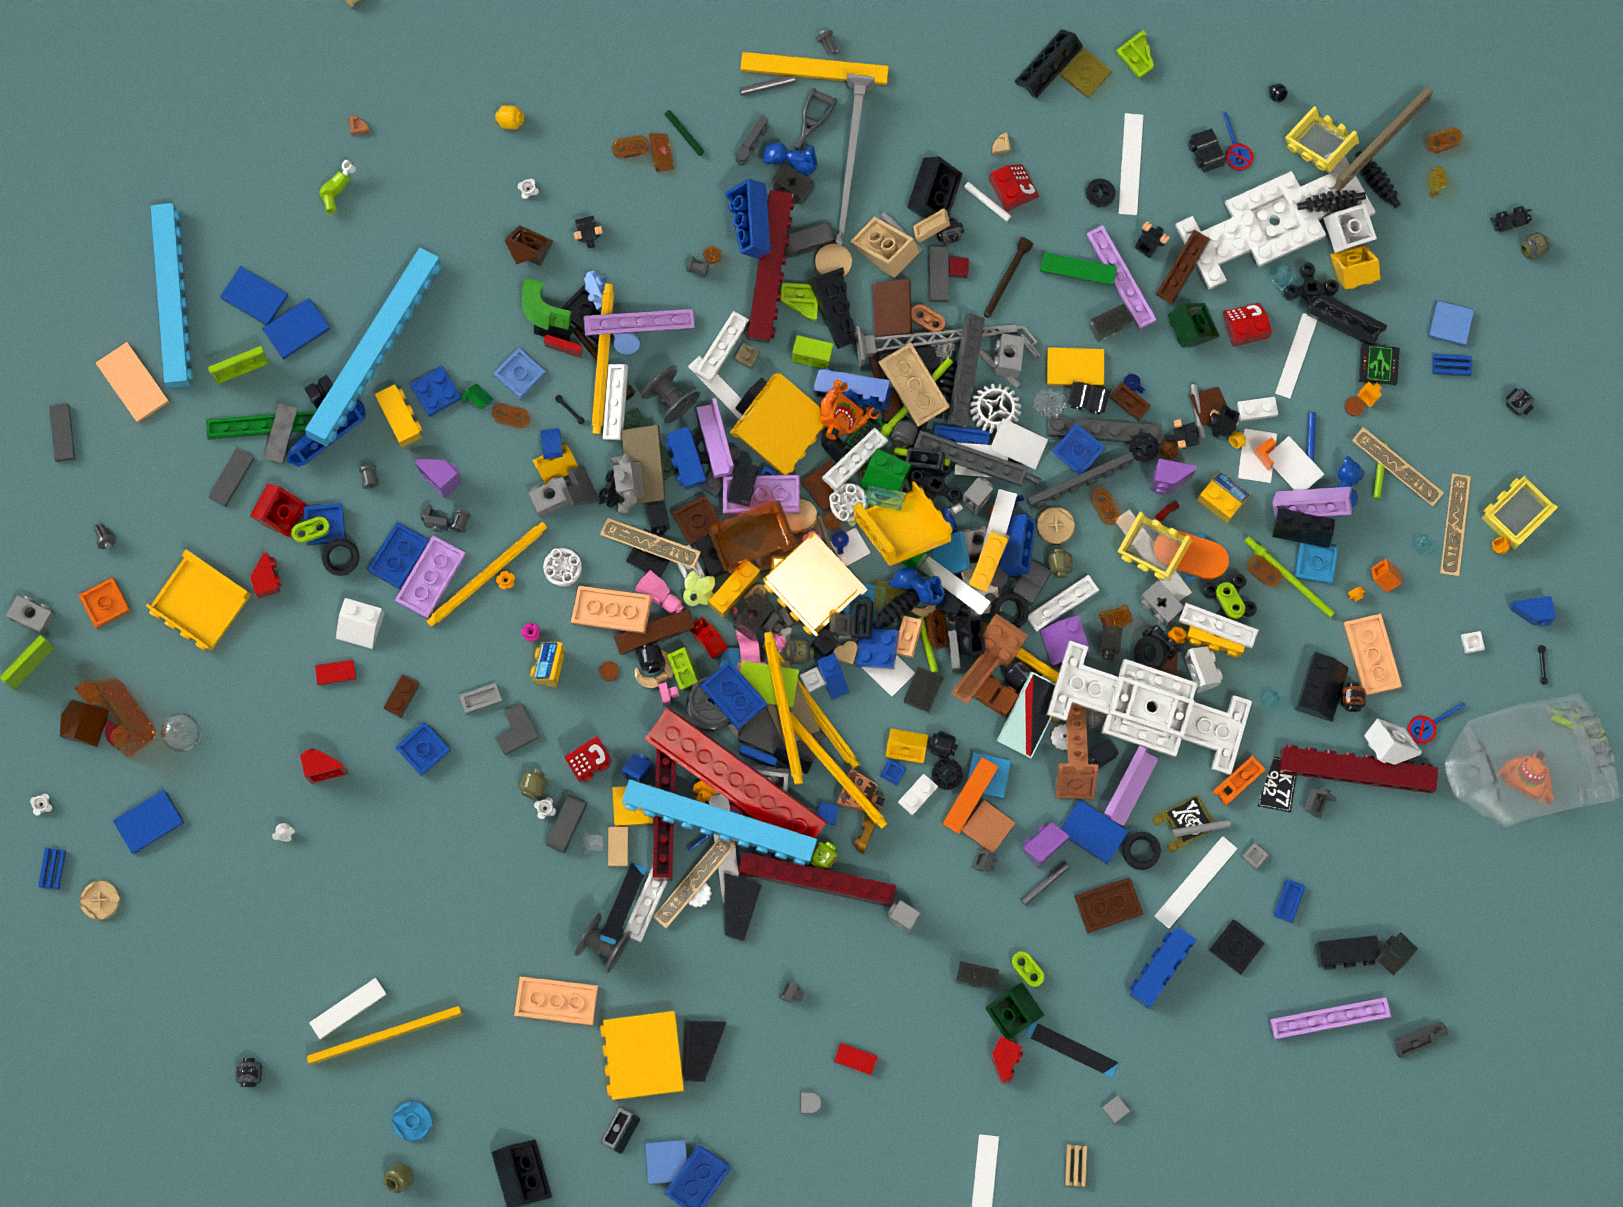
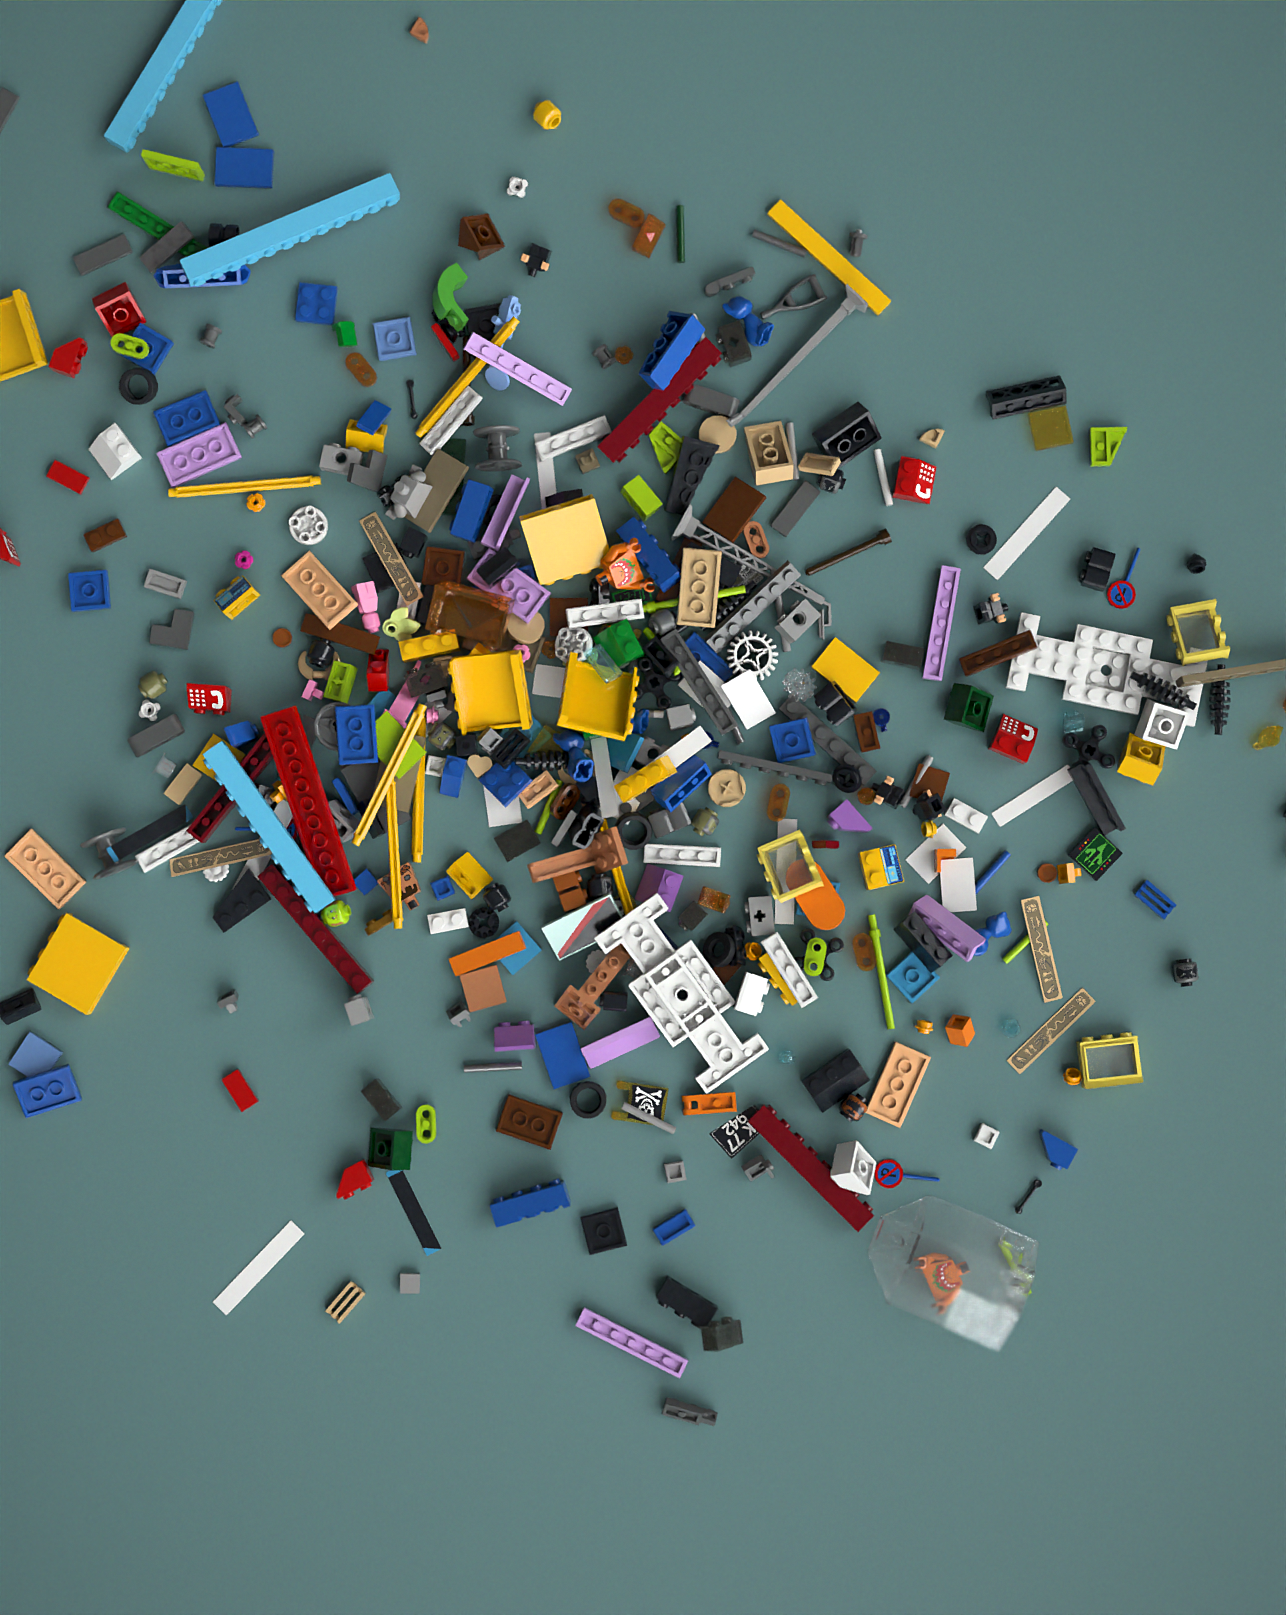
camera: 40 degrees right, 10 degrees up
(132, 382) = (82, 116): light nougat tile -> none
(336, 186) = (362, 69): lime arm -> none
(399, 415) = (271, 302): yellow brick -> none
(439, 474) = (264, 378): medium lavender slope -> none
(701, 1046) = (128, 990): black wing -> none
(810, 1102) = (179, 1097): light grey tile -> none
(840, 544) = (544, 674): clear blue piece -> none
(959, 267) = (816, 515): dark red tile -> none
(1078, 269) = (911, 590): green tile -> none
(1195, 882) = (612, 1156): white sticker -> none
(1451, 323) = (1182, 864): medium blue tile -> none

